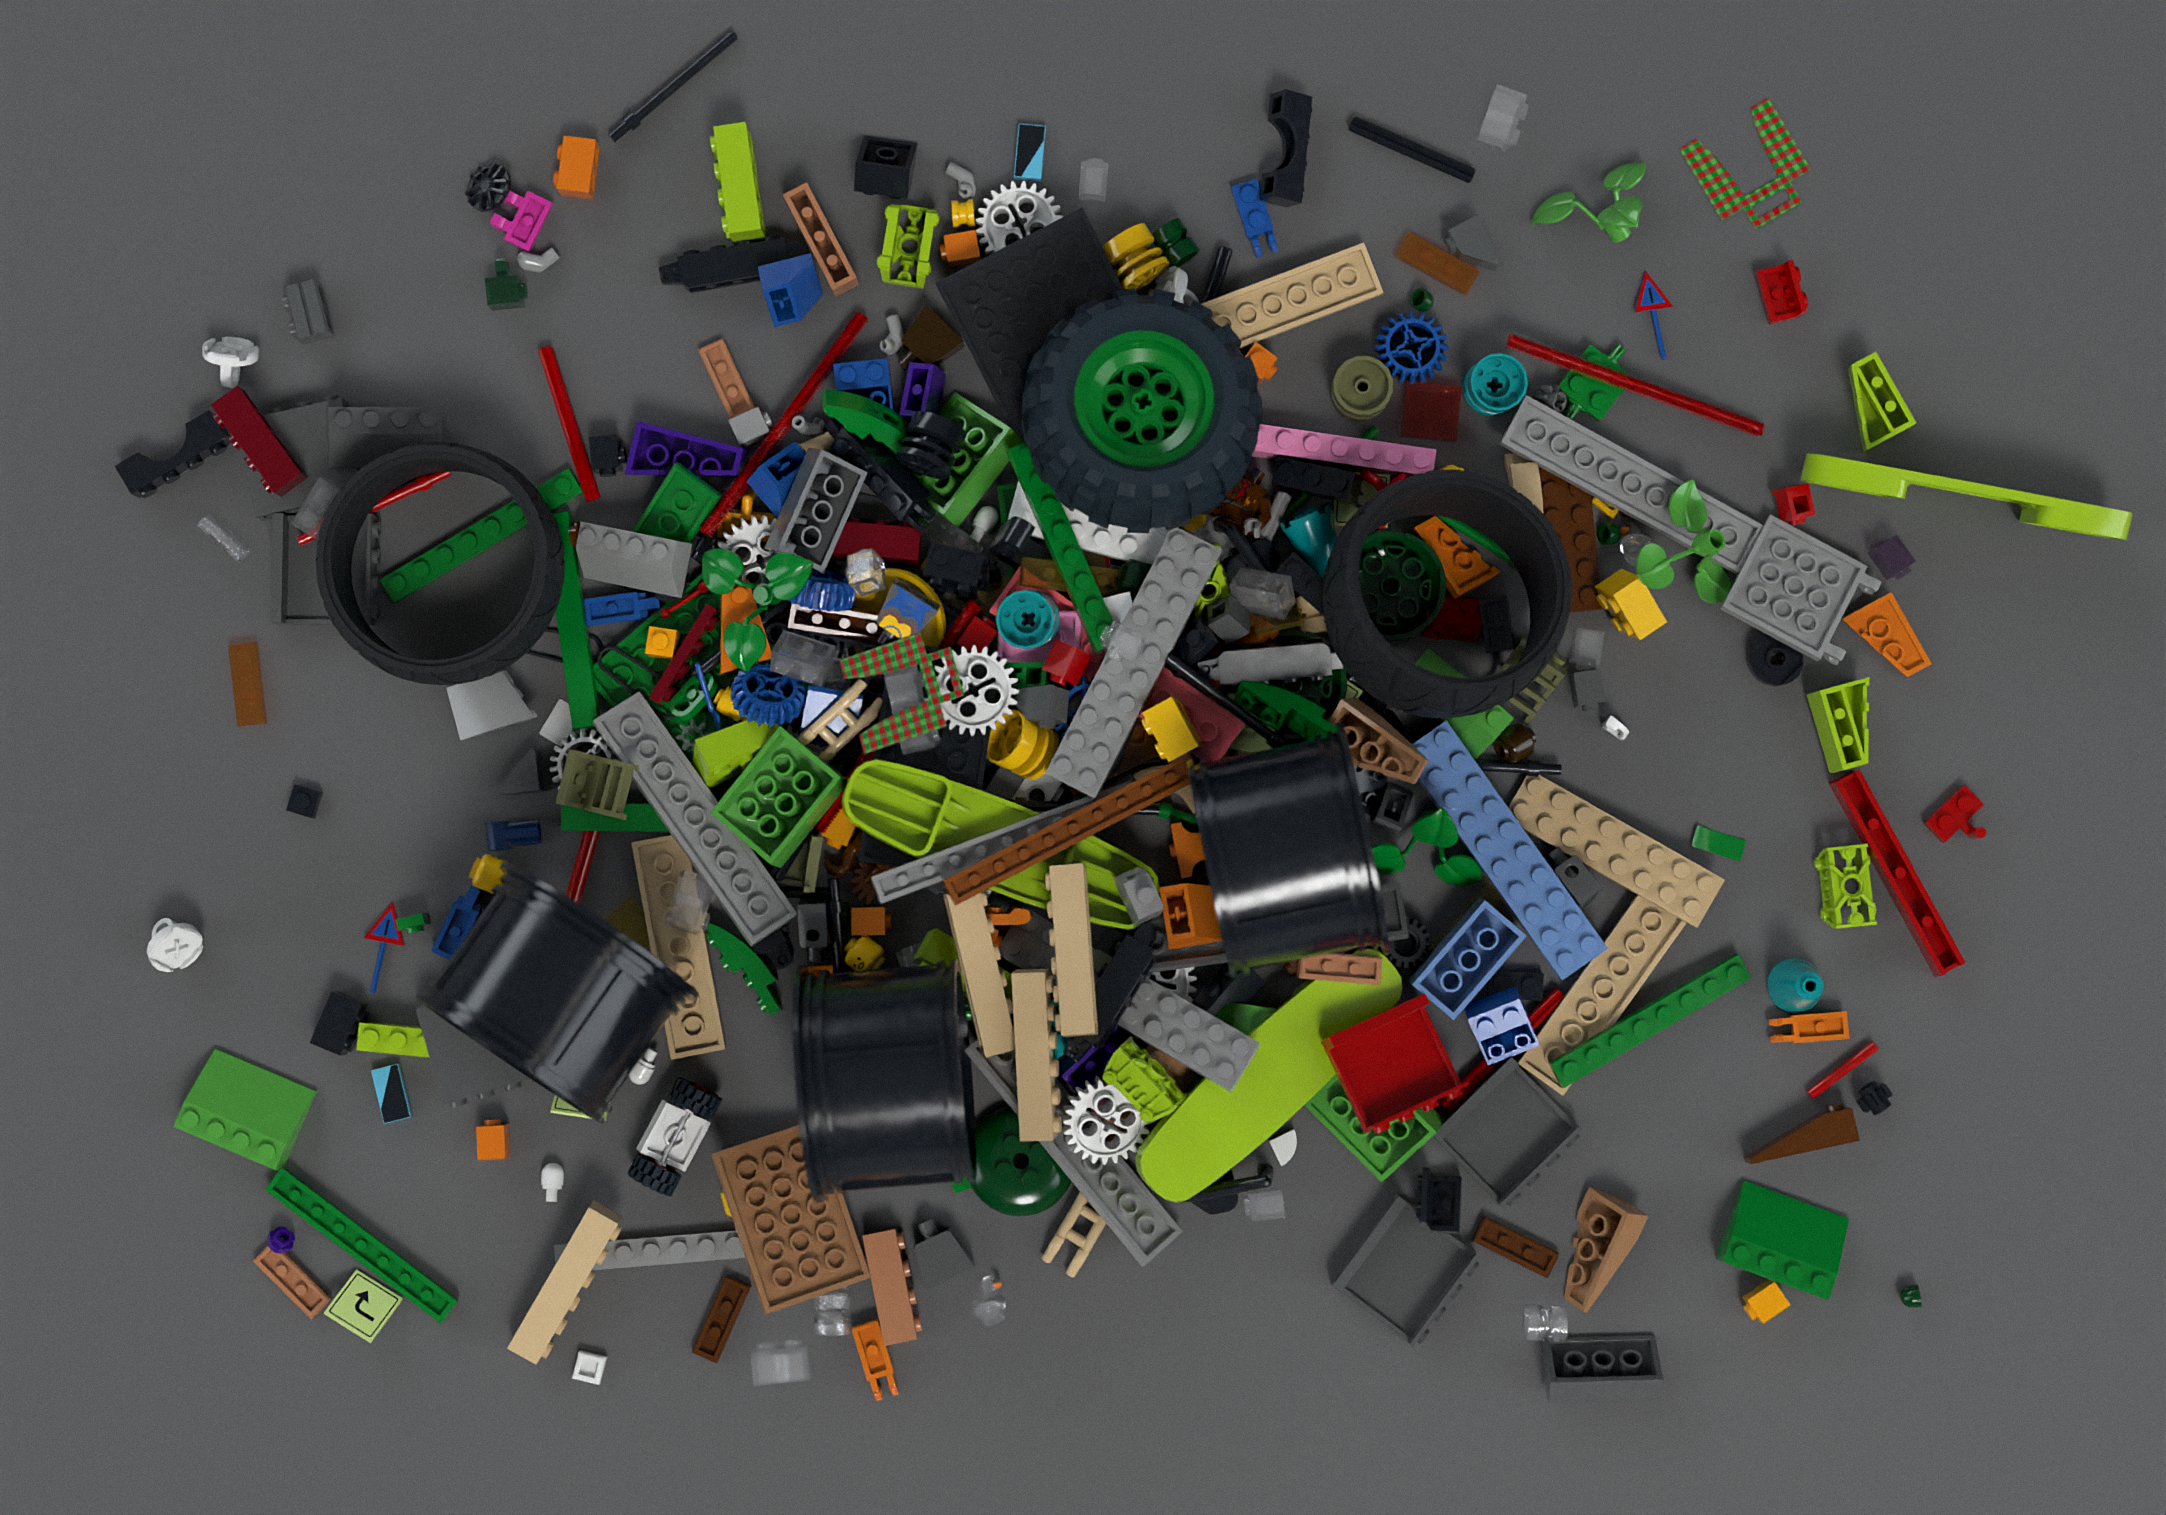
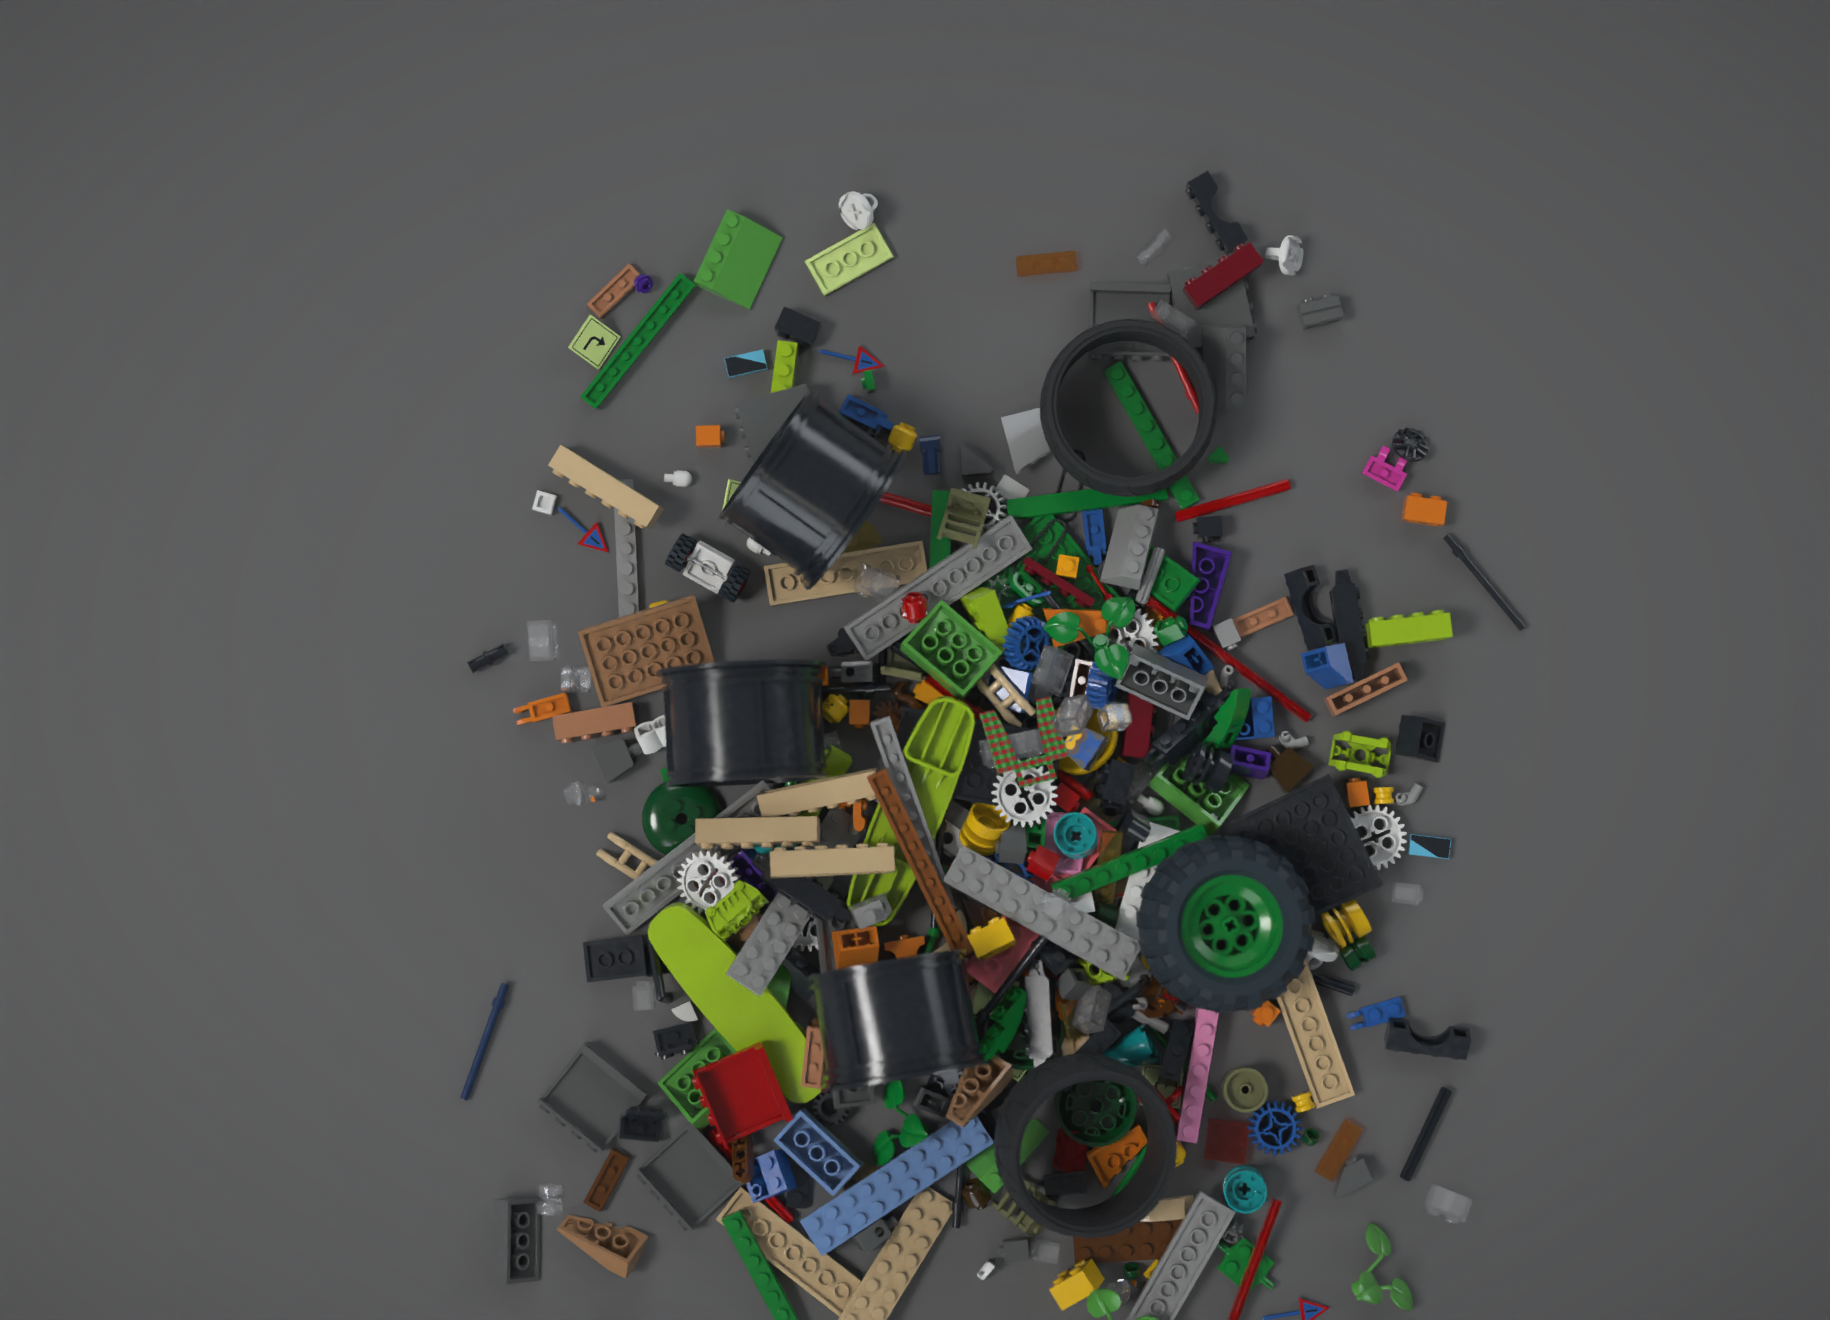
camera: 90 degrees right, 0 degrees up
(244, 955) = (849, 259): none -> yellowish green tile
(304, 801) = (959, 303): black plate -> none
(505, 290) = (1332, 455): clear green brick -> none
(509, 443) = (1218, 457): none -> green slope
(535, 262) = (1353, 479): light grey arm -> none
(637, 1298) = (592, 538): none -> piece
(672, 530) = (1150, 575): none -> light grey axle
(682, 327) = (1315, 630): none -> black arch
(721, 849) = (914, 607): none -> red head
(721, 1318) = (575, 598): reddish brown tile -> none
(739, 956) = (837, 617): green slope -> none
(745, 499) = (1170, 629): none -> green brick
(806, 1438) = (487, 658): none -> black pin
(864, 627) = (1072, 715): none -> clear brick
(907, 1205) = (651, 735): none -> white brick
(1214, 1245) = (615, 958): none -> black plate
(1281, 1406) = (498, 1003): none -> dark blue bar
(1322, 1159) = (675, 1039): none -> black bracket
(1375, 310) = (1303, 1101): none -> yellow wheel
(1484, 1055) = (745, 1172): none -> reddish brown beam

